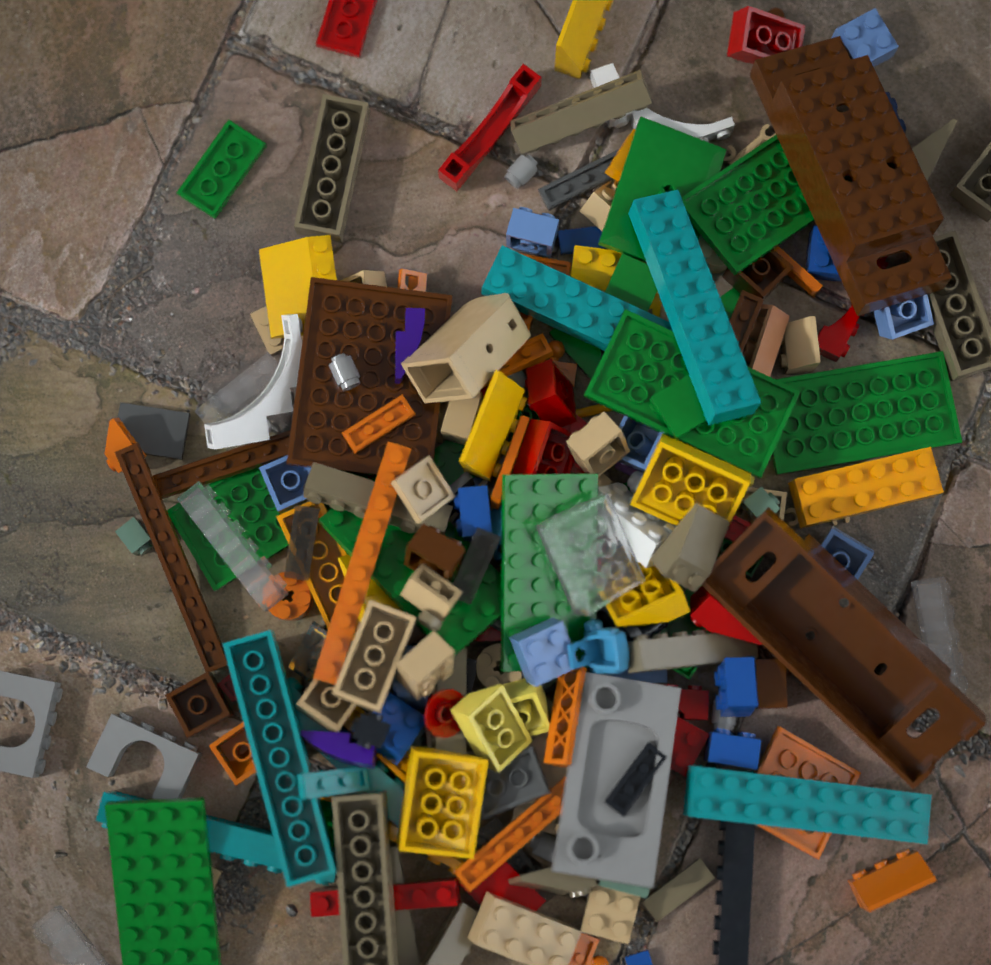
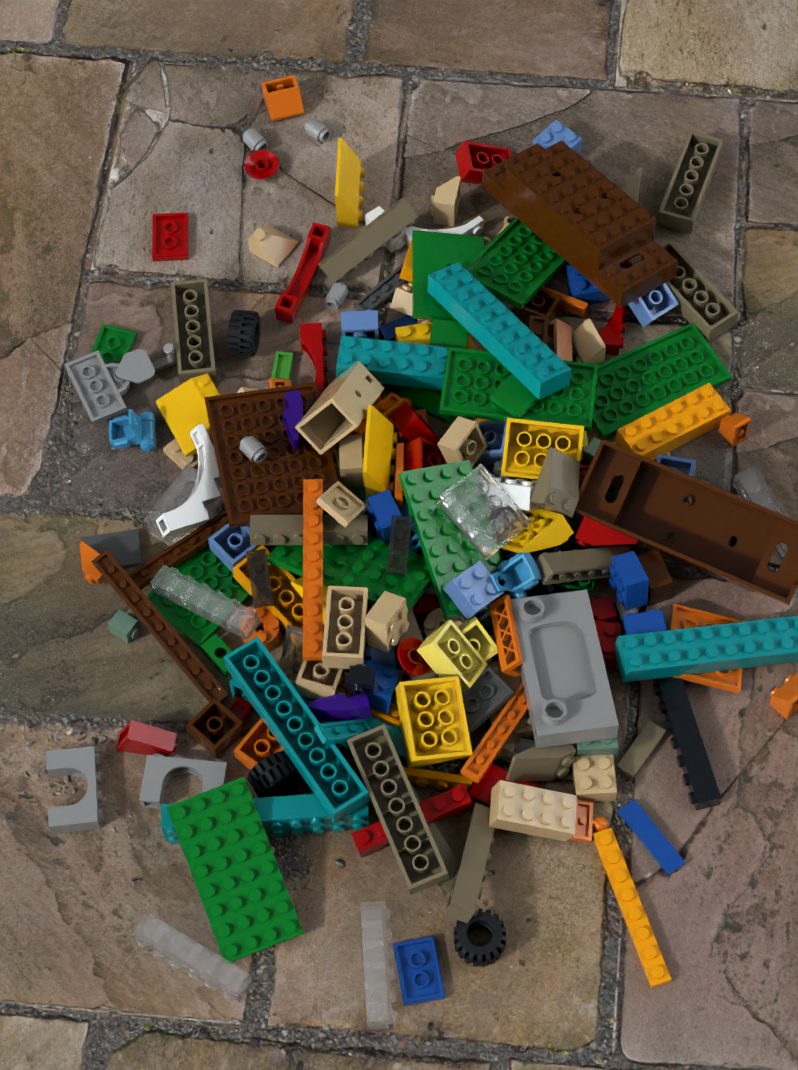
camera: 20 degrees left, 20 degrees down
(118, 692) = (146, 739): none -> red slope
(198, 202) = (103, 384): none -> light grey plate
(219, 281) = (133, 430): none -> dark azure piece
(238, 793) = (274, 775): none -> black tyre
(244, 622) = (209, 648): none -> green piece
(378, 424) = (290, 479): orange tile -> none
(389, 193) = (243, 333): none -> black tyre
(425, 249) = (282, 365): none -> bright green tile
(429, 621) = (377, 588): dark tan tile -> none
(431, 592) = (373, 570): tan brick -> none
(435, 552) = (366, 547): reddish brown brick -> none
(466, 71) = (271, 245): none -> tan slope
(471, 226) = (312, 344): none -> red arch
(634, 780) = (576, 660): black tile -> none
(696, 84) = (446, 202): none -> tan slope
(939, 513) = (735, 428): none -> orange slope

